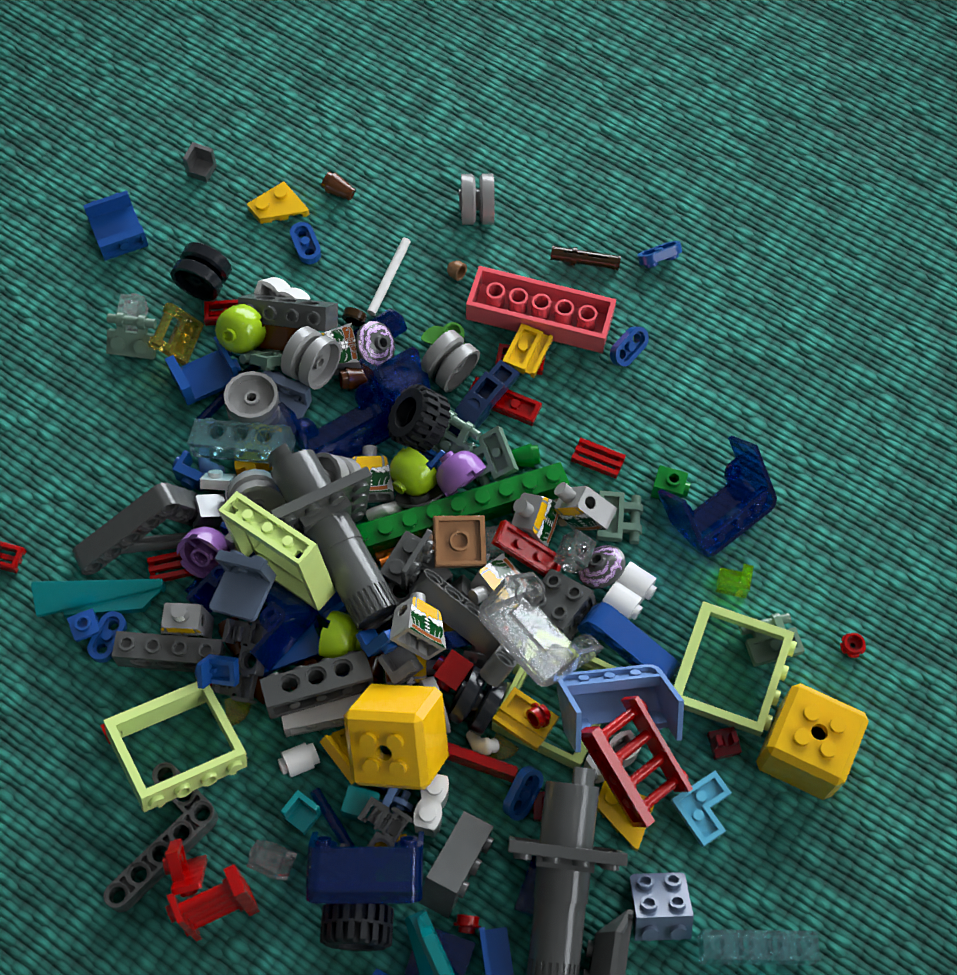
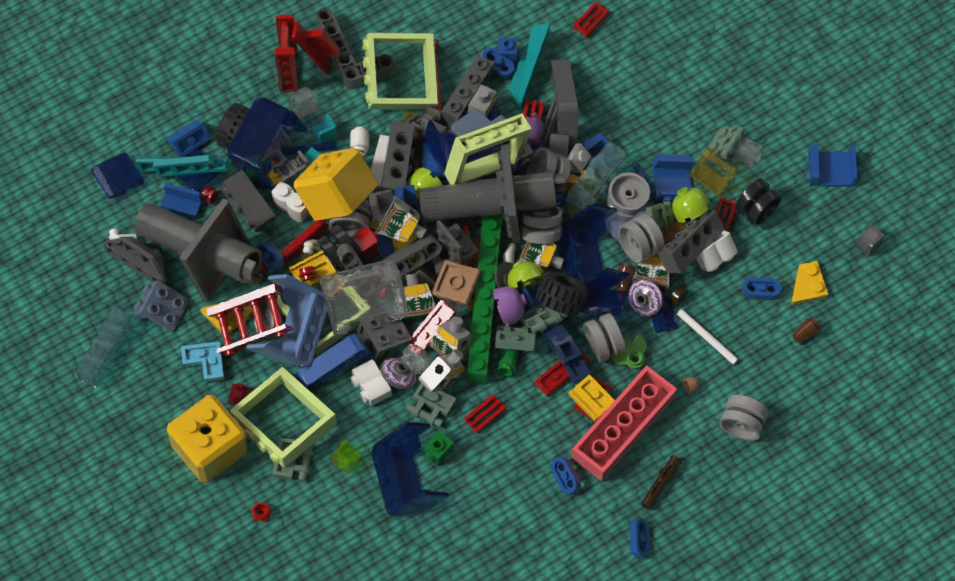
camera: 115 degrees right, 0 degrees up
(217, 670) = (437, 106): blue bracket -> none

